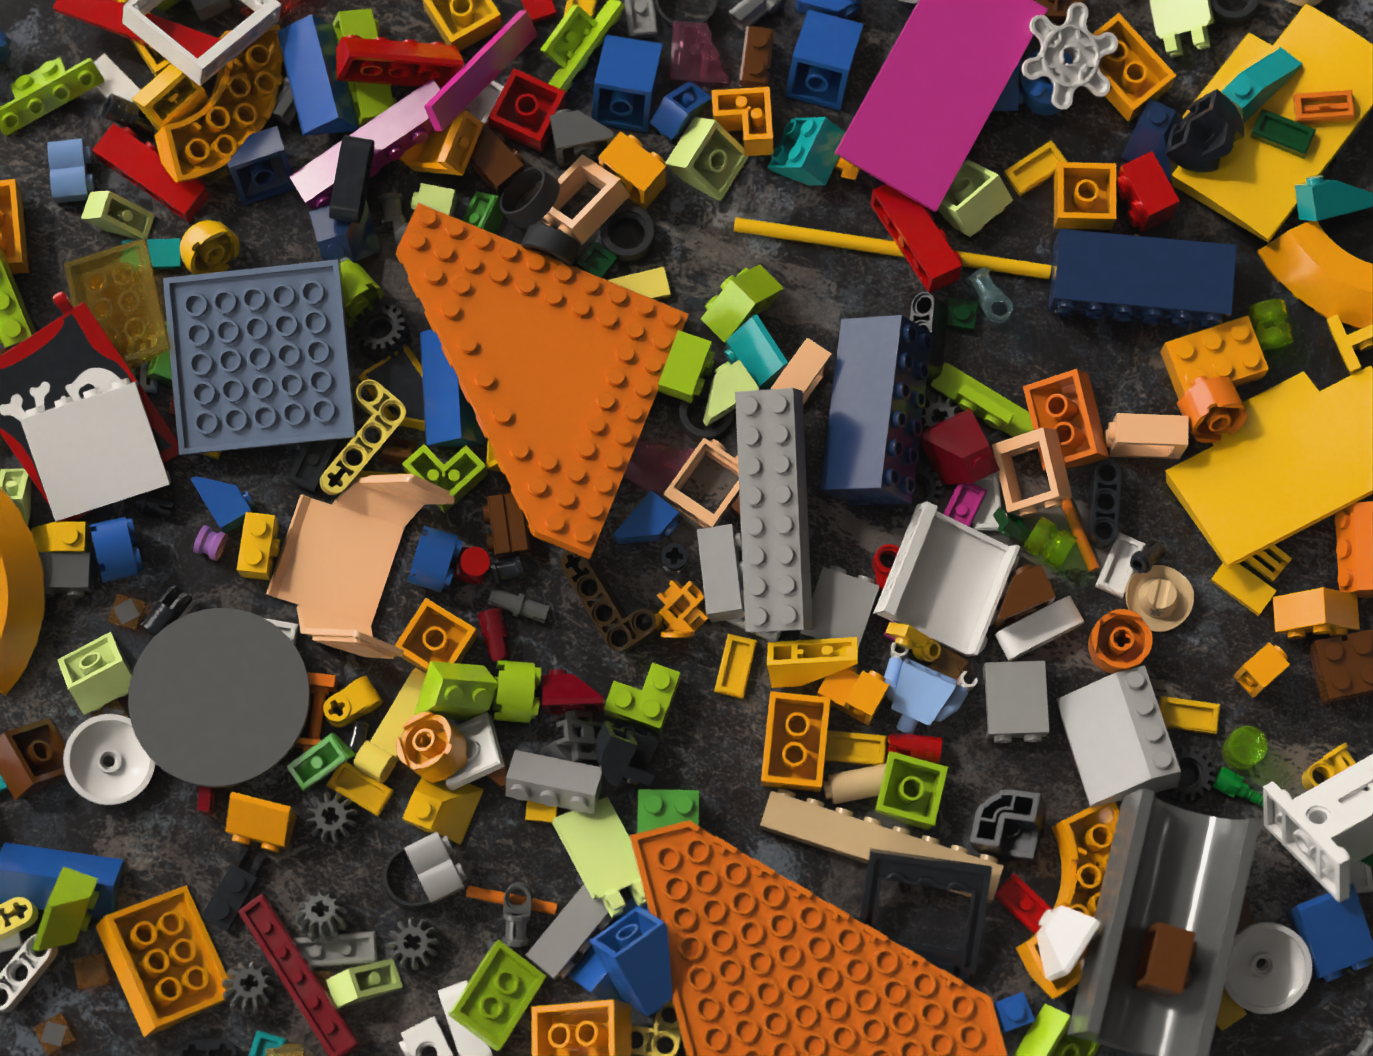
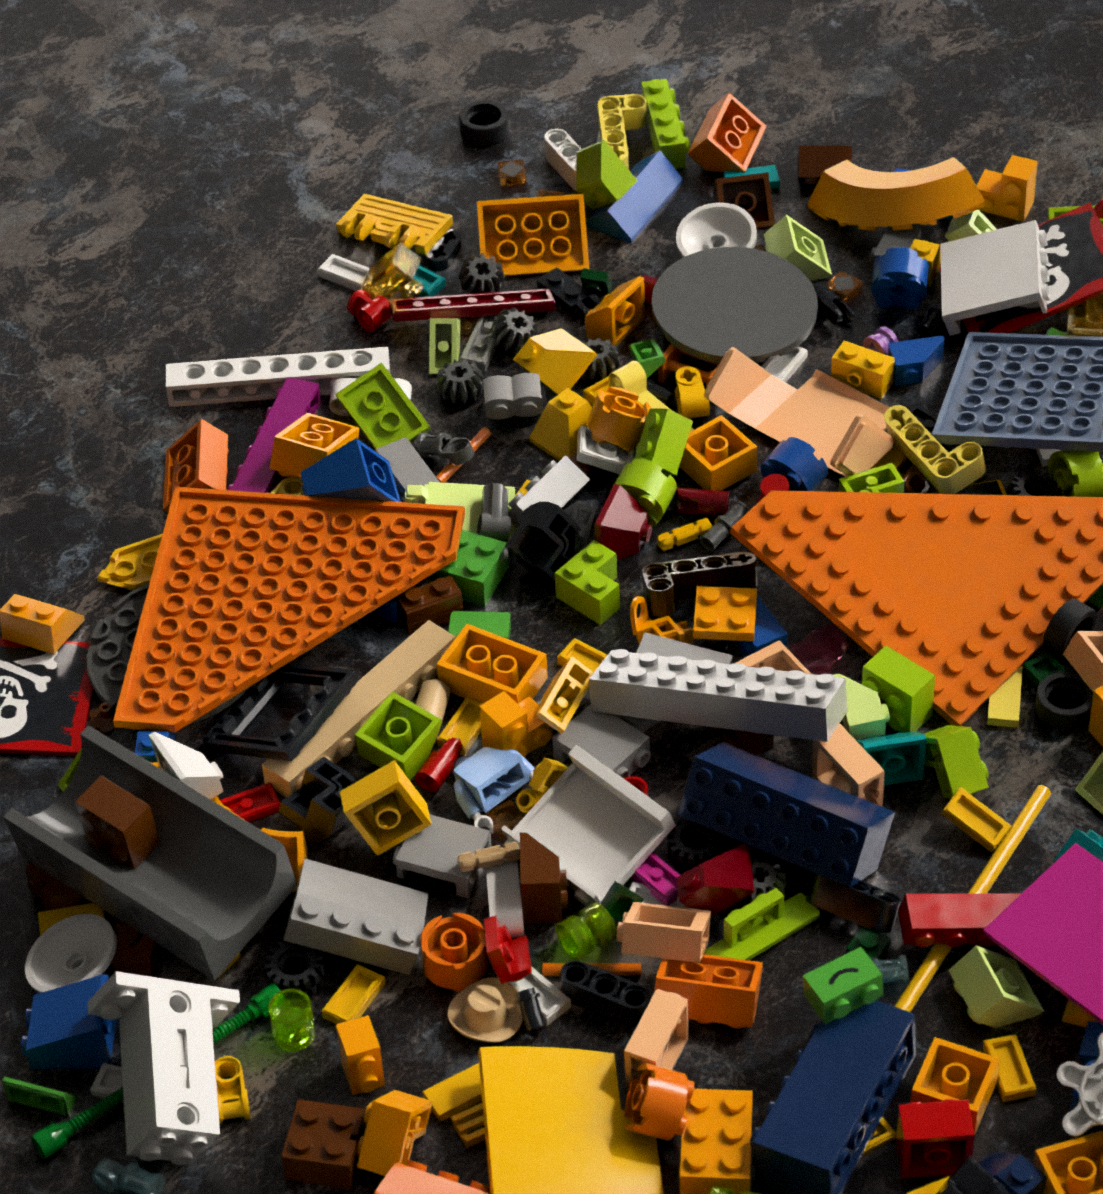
camera: 115 degrees right, 30 degrees down
(214, 864) = (596, 281): none -> dark green plate
(358, 850) = (556, 359): none -> yellow slope
(540, 640) = (683, 534): none -> yellow axle
(612, 815) = (494, 513): none -> dark grey piece
(653, 551) = (725, 613): none -> light orange plate
(727, 828) = (428, 602): none -> reddish brown brick
(739, 781) = (493, 622): none -> bright green slope
(797, 265) = (976, 819): none -> yellow tile
(1013, 754) = (385, 808): none -> yellow brick
(1019, 648) = (488, 857): none -> tan axle
(1064, 287) = (843, 985): none -> bright green brick
(1104, 594) = (508, 956): none -> red bracket

